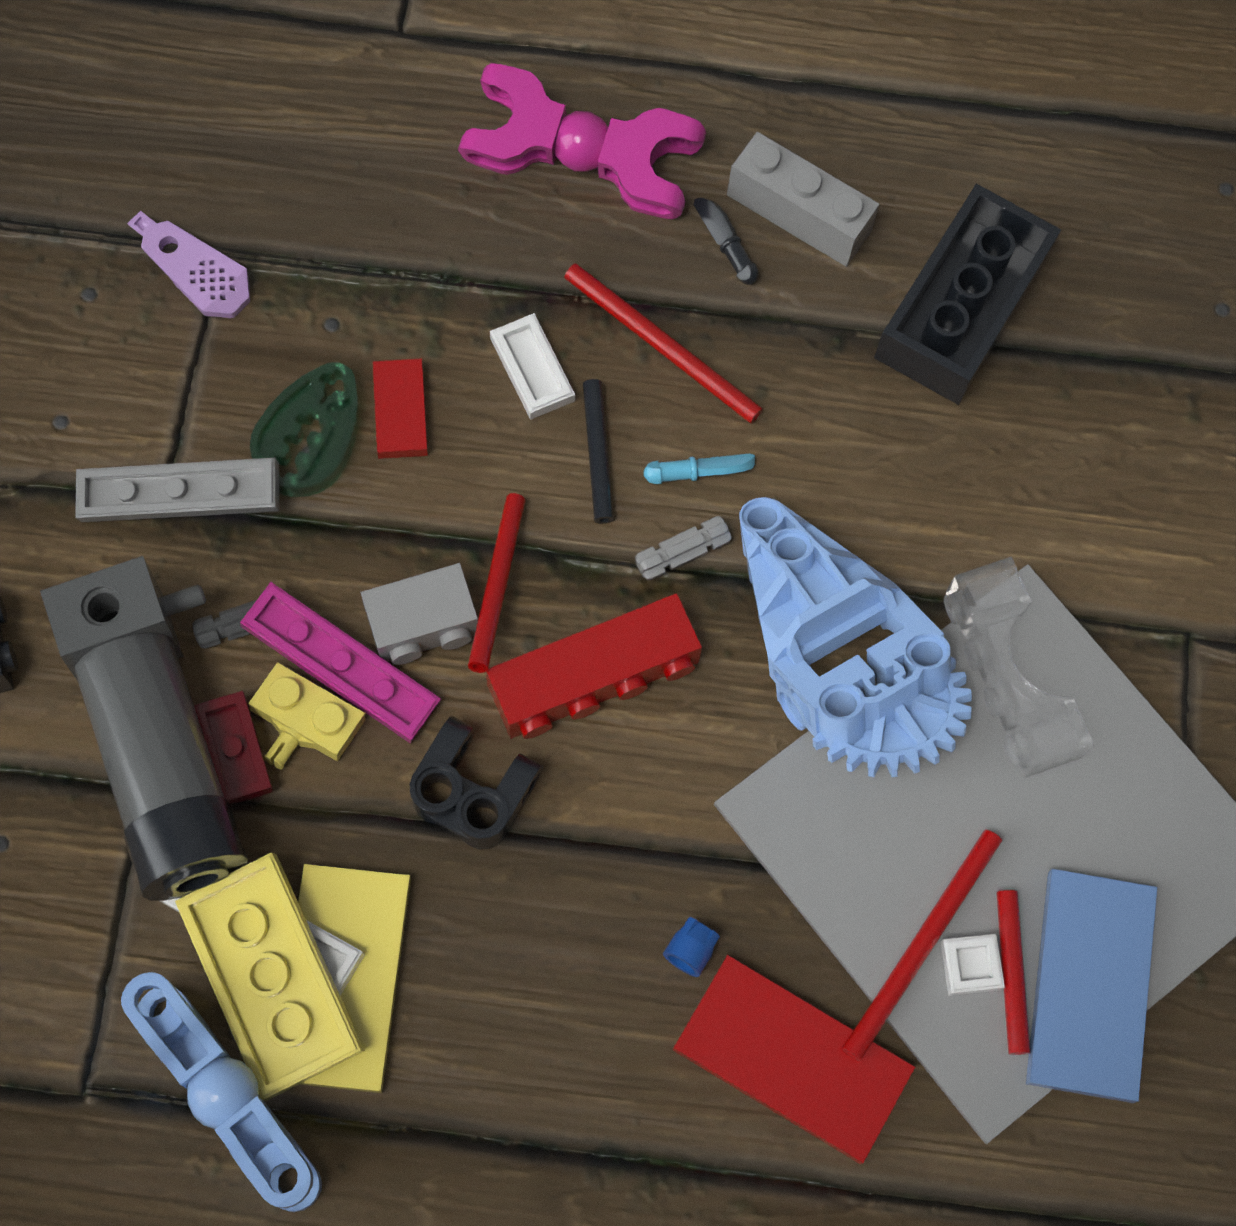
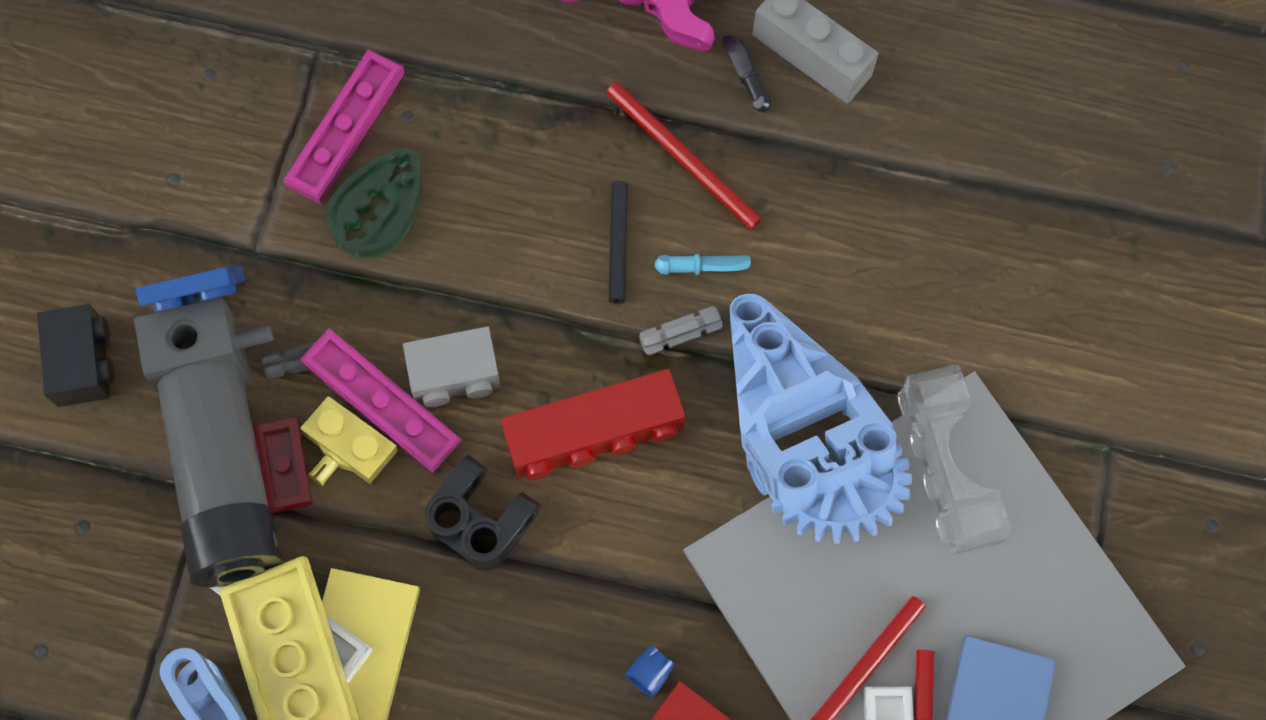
camera: 10 degrees right, 0 degrees up
(87, 555) = (181, 290): none -> blue plate
(177, 490) = (262, 243): light grey tile -> none
(195, 258) = (293, 53): lavender piece -> none
(258, 343) = (344, 127): none -> dark pink tile
(400, 408) = (455, 191): red tile -> none
(496, 583) = (518, 346): red piece -> none
(532, 366) = (571, 165): white tile -> none
(966, 294) = (946, 135): black brick -> none

